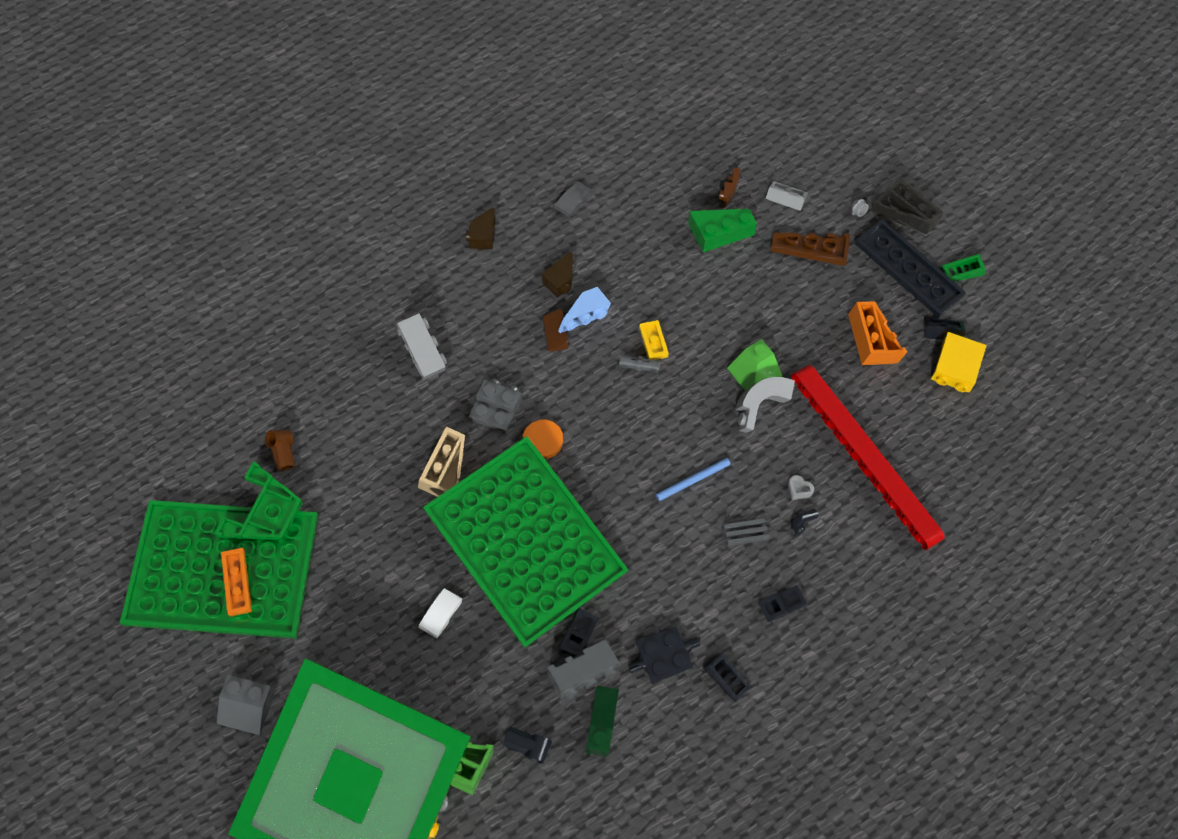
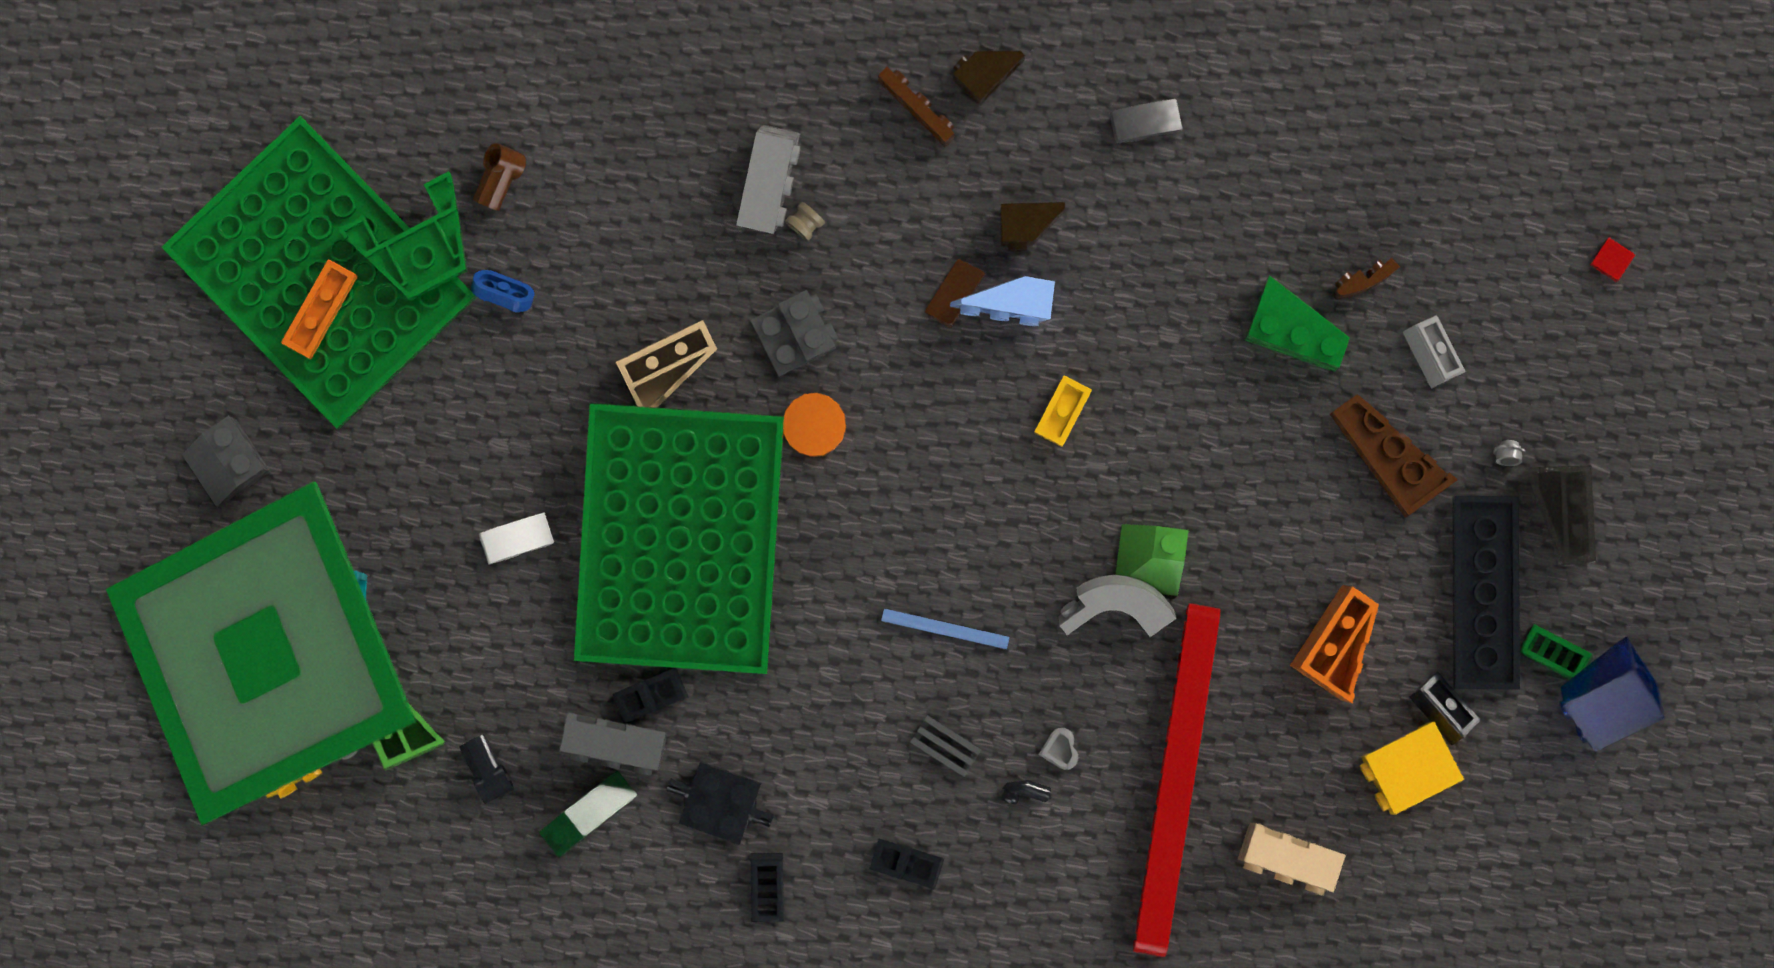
camera: 45 degrees right, 20 degrees up
(330, 499) = (502, 290): none -> blue plate
(455, 353) = (805, 221): none -> dark tan wheel
(463, 267) = (917, 105): none -> reddish brown plate
(639, 363) = (1017, 427): dark grey pin -> none
(820, 107) = (1612, 259): none -> red tile
(950, 444) = (1290, 859): none -> tan wedge
(1008, 260) = (1612, 697): none -> clear blue slope

